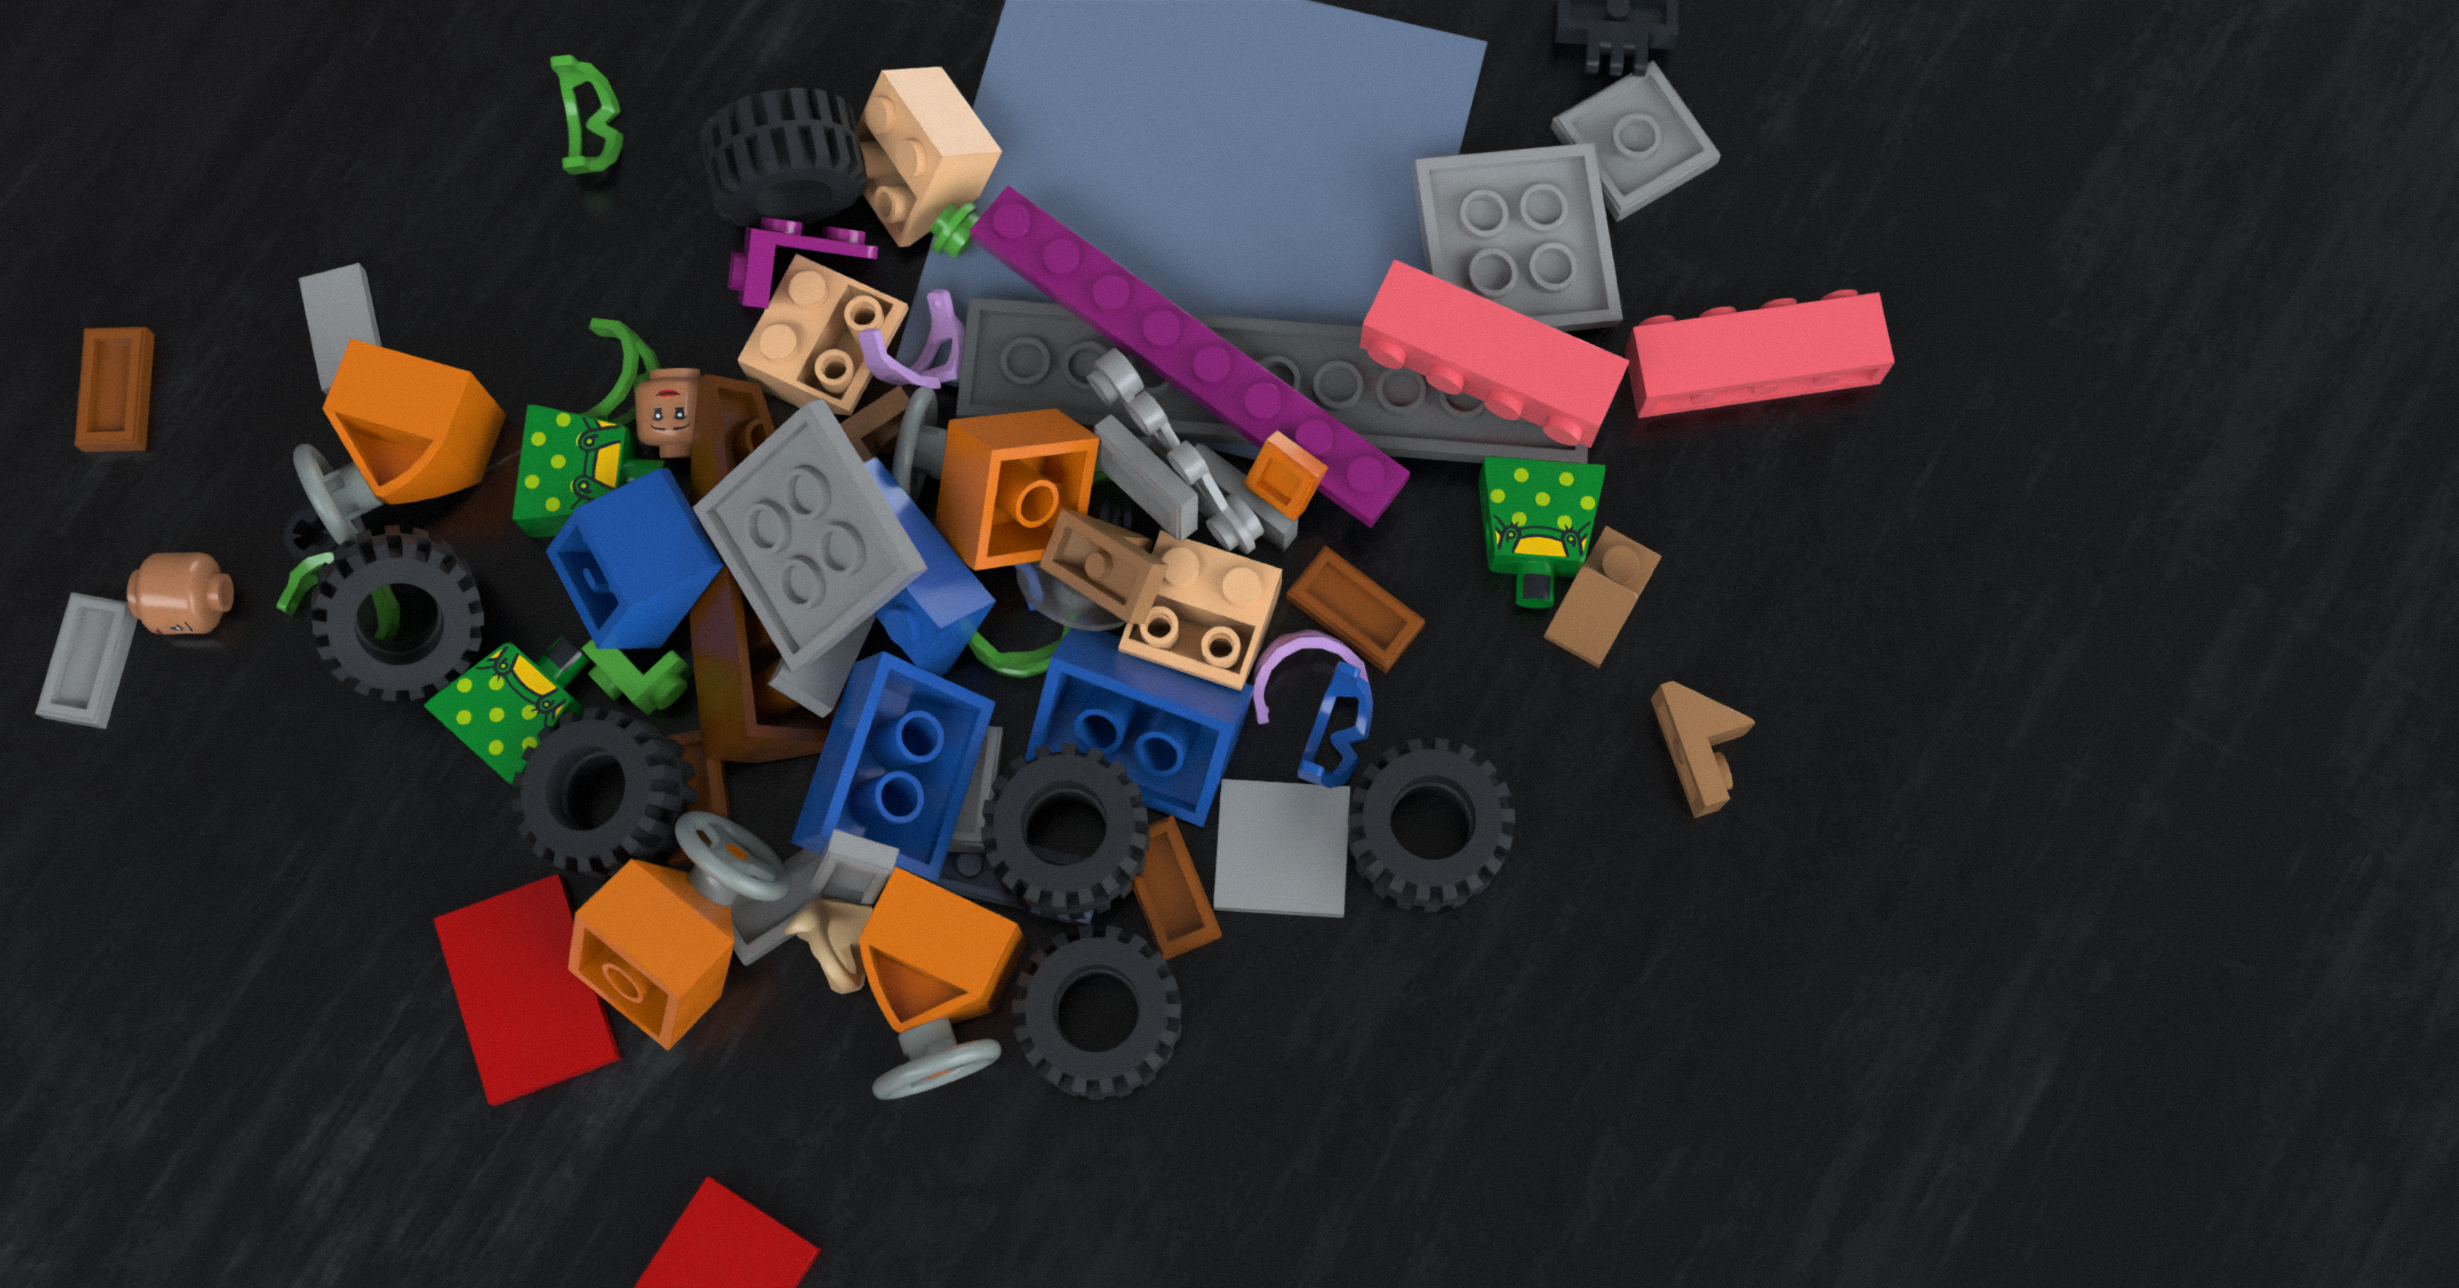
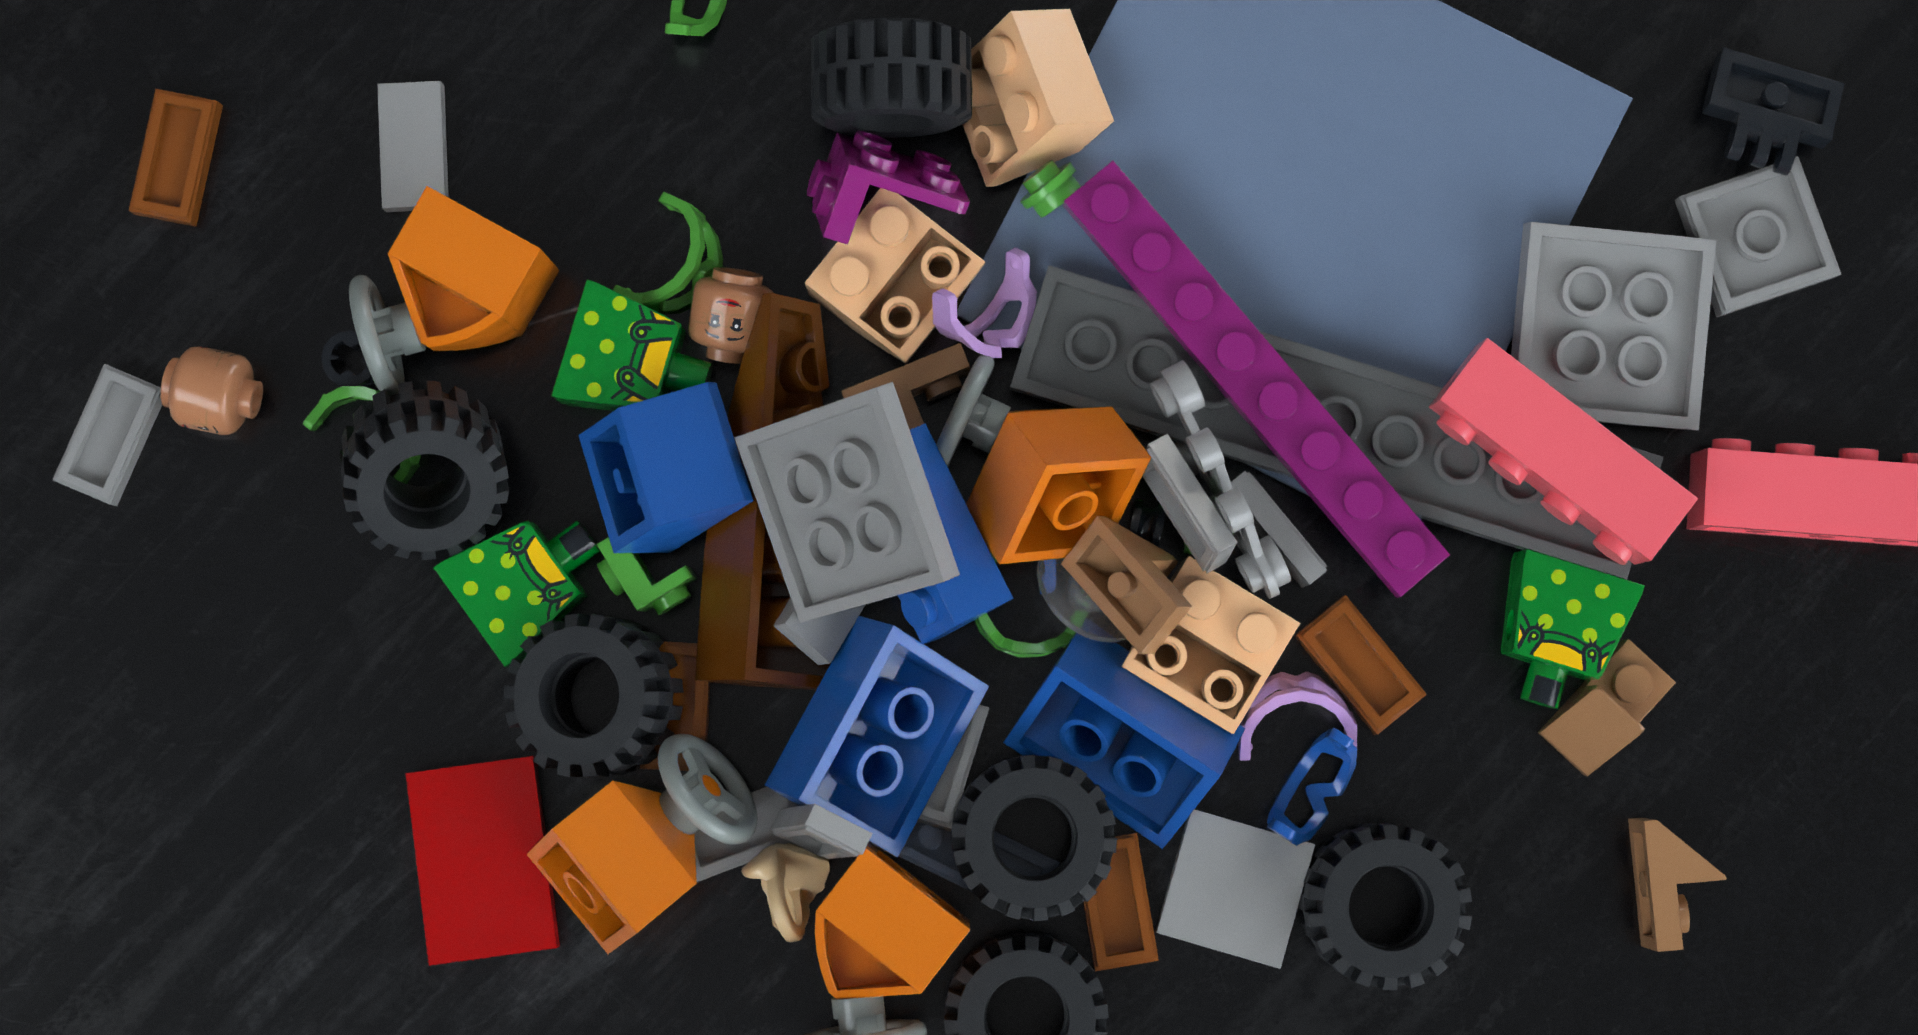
camera: 10 degrees right, 10 degrees up
(1285, 475) = (1325, 531): orange tile -> none

